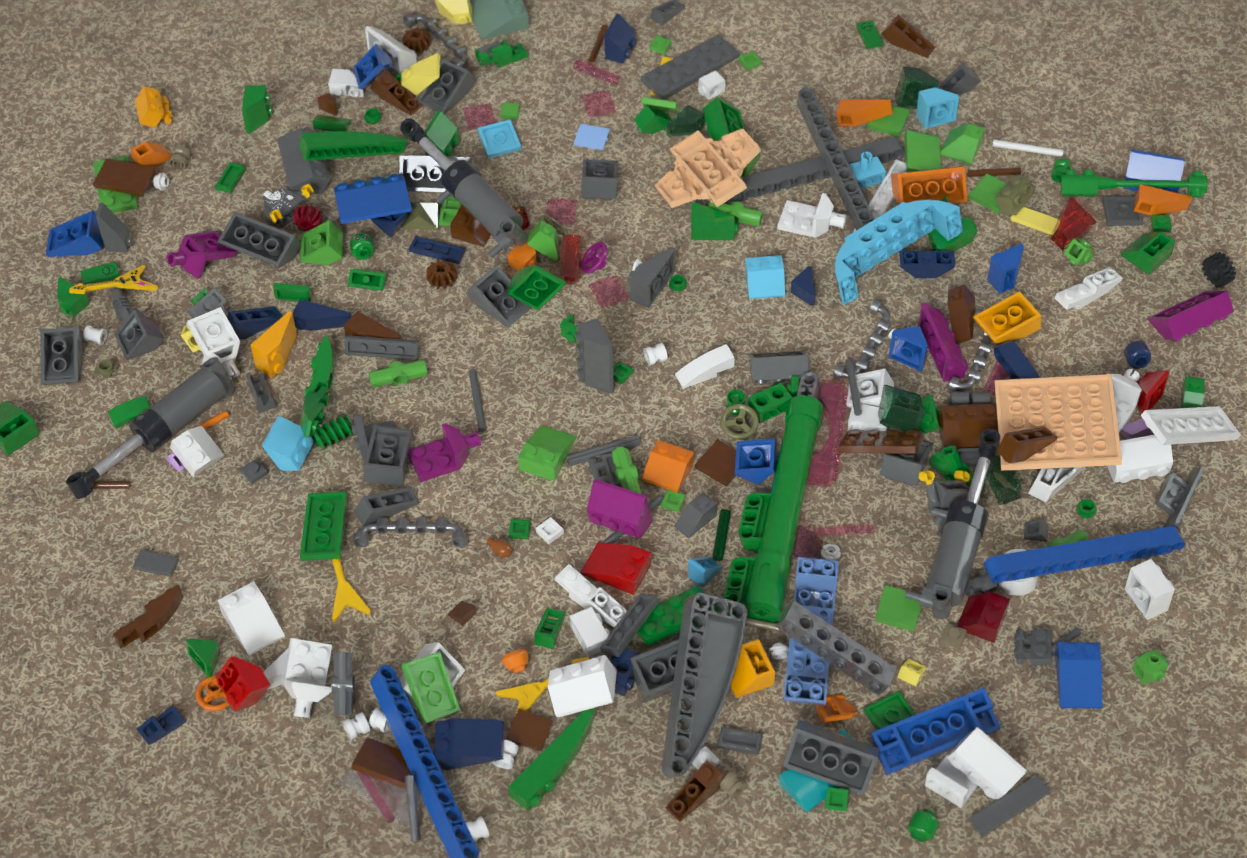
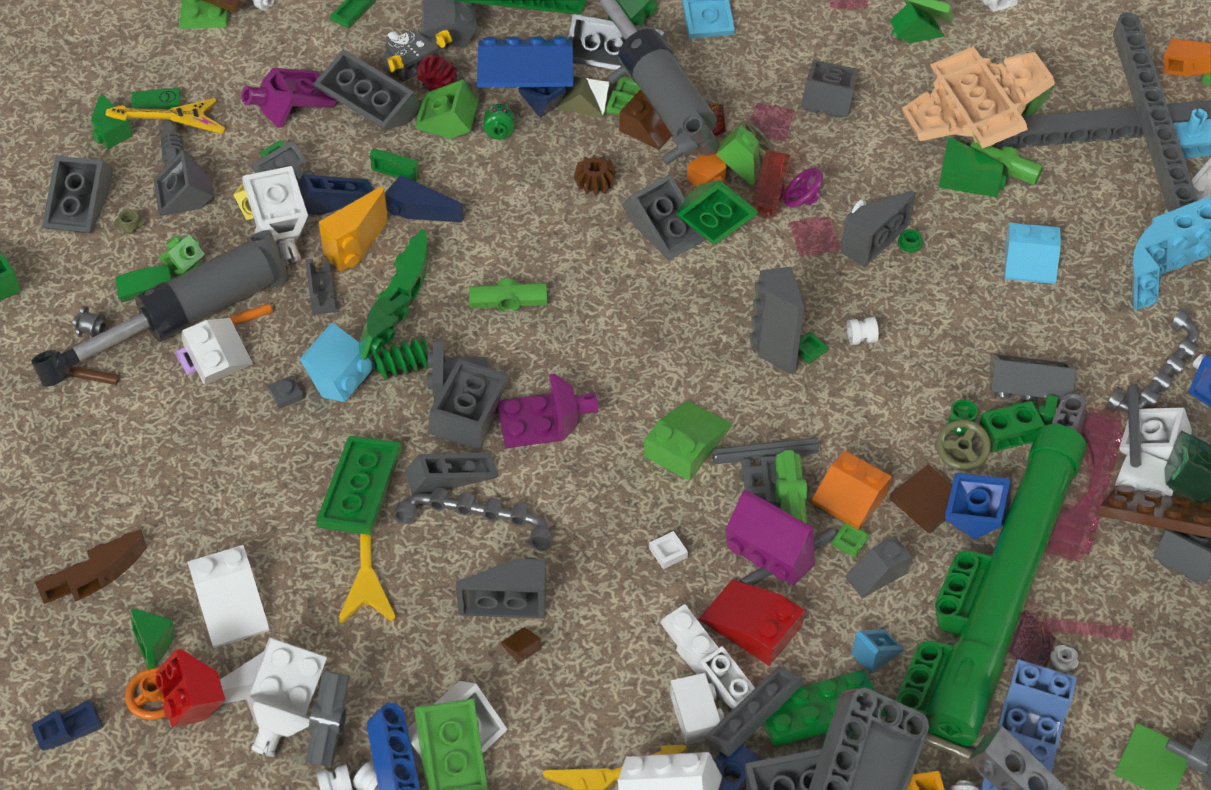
camera: 10 degrees right, 0 degrees up
(75, 237) = (140, 48): blue slope -> none
(95, 335) = (127, 175): white bush -> none
(98, 448) = (89, 323): none -> flat silver brick
(113, 230) = (184, 49): dark grey slope -> none
(153, 385) = (182, 254): none -> bright green brick
(155, 563) = (122, 493): dark grey tile -> none
(364, 326) = (483, 234): reddish brown slope -> none
(367, 279) = (496, 165): green slope -> none
(381, 347) = (494, 257): dark grey tile -> none
(437, 250) = (596, 143): dark blue tile -> none
(444, 578) = (505, 590): none -> dark grey slope
(477, 400) = (606, 353): dark grey bar -> none
(500, 547) = (594, 560): dark orange cylinder -> none
(516, 660) = (581, 730): orange cone -> none
(519, 529) = (626, 539): green tile -> none
(548, 639) = (631, 706): green slope -> none
(568, 328) = (749, 275): green bracket -> none
(591, 136) = (829, 33): light blue piece -> none
(686, 122) = (958, 34): clear green slope -> none
(706, 366) = (929, 360): white slope -> none
(721, 535) = (910, 602): dark green axle -> none
(722, 118) = (1007, 36): green slope -> none
(803, 286) = (1084, 275): dark blue slope -> none
(810, 219) = (1106, 187): white plate -> none

